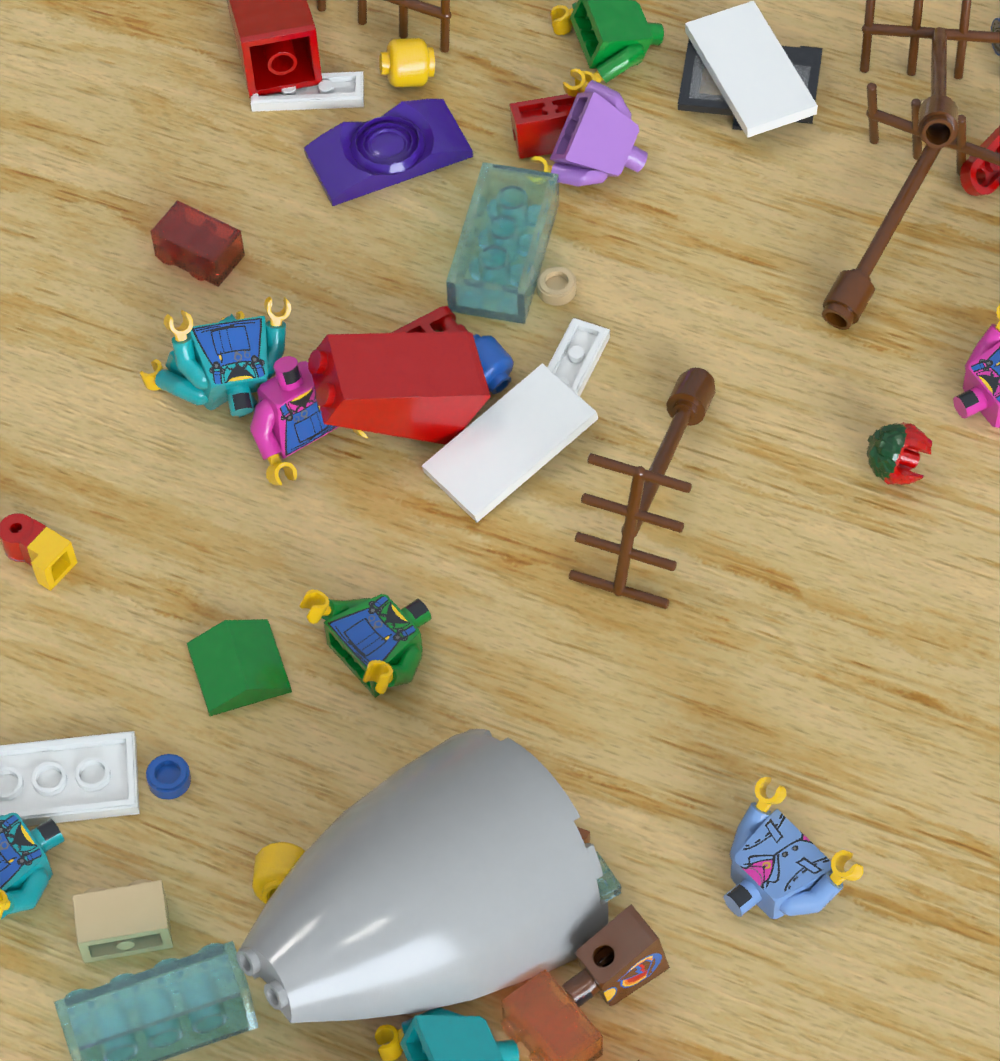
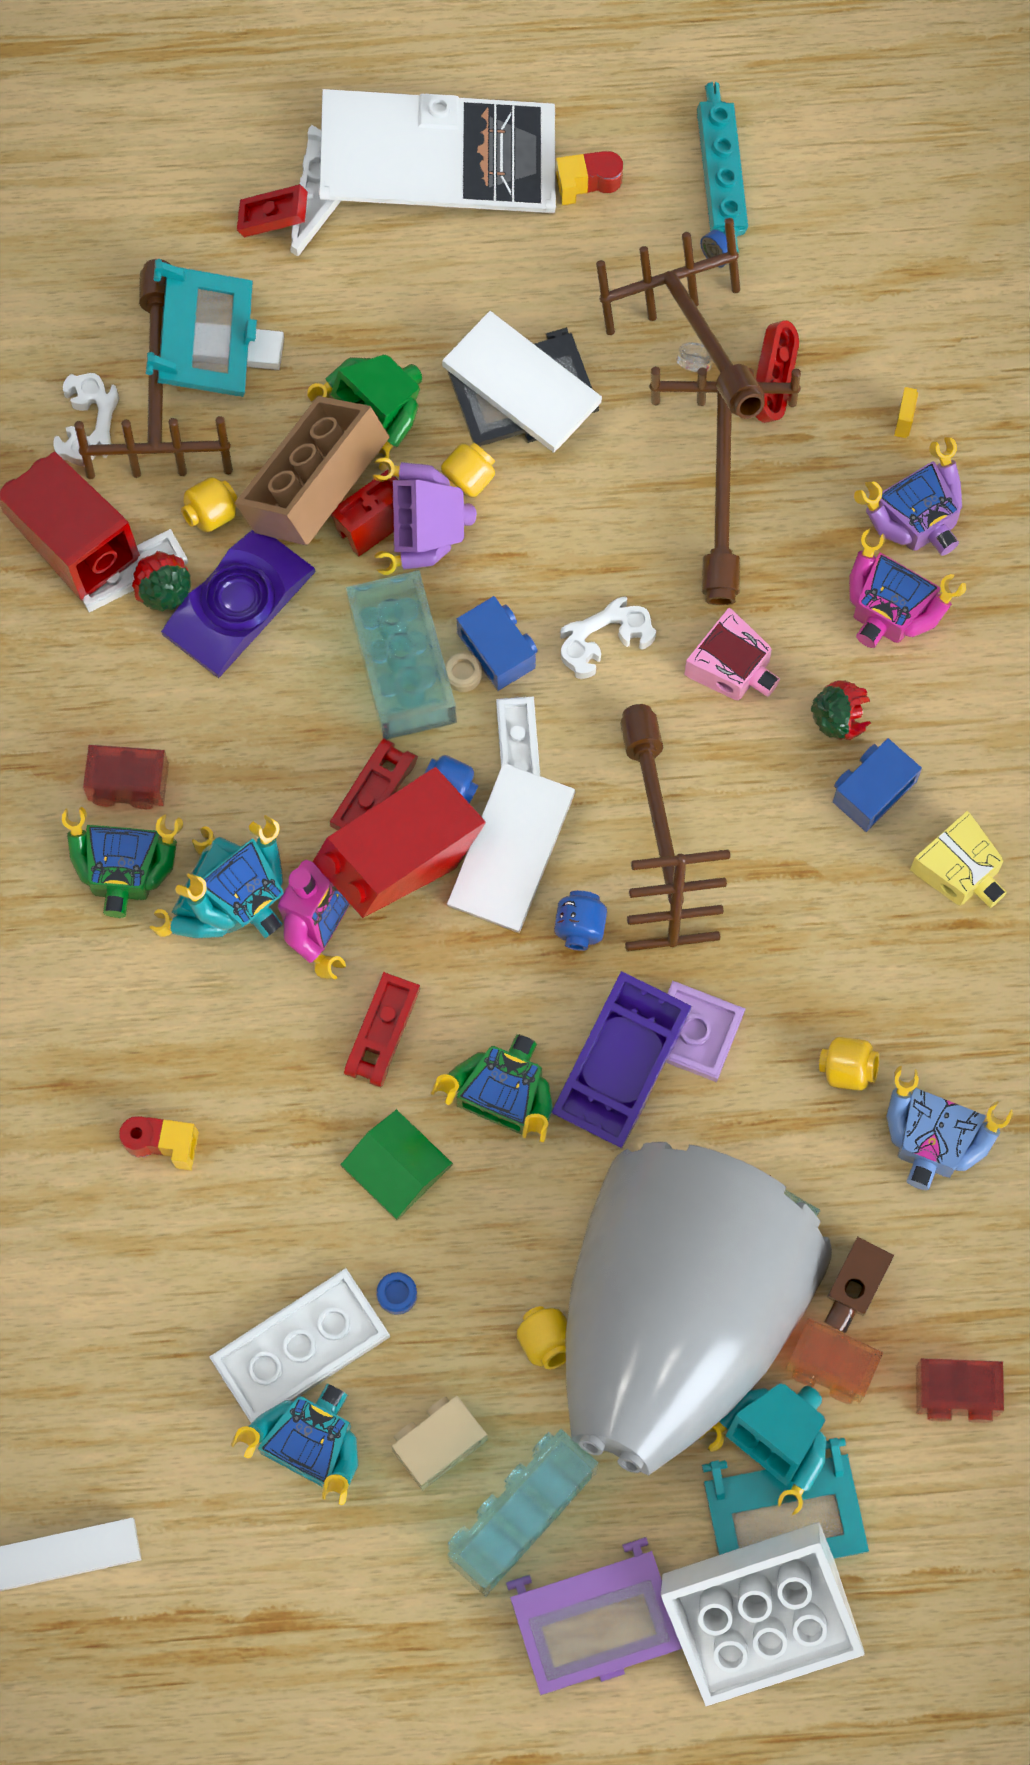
camera: 30 degrees left, 15 degrees up
(141, 298) = (121, 860): none -> torso
(295, 544) = (382, 1028): none -> red plate
(324, 102) = (161, 581): none -> dark green piece
(504, 661) = (622, 1059): none -> dark purple slope
(512, 63) = (312, 470): none -> medium nougat brick
(537, 528) = (580, 920): none -> blue head
(592, 675) = (706, 1033): none -> lavender tile
(600, 270) = (497, 643): none -> blue brick
(660, 123) = (469, 469): none -> yellow head
(727, 765) = (849, 1063): none -> yellow head
(740, 307) = (577, 652): none -> white helmet
(817, 371) = (732, 659): none -> torso
(899, 533) = (875, 784): none -> blue brick
(944, 636) = (961, 863): none -> light yellow torso

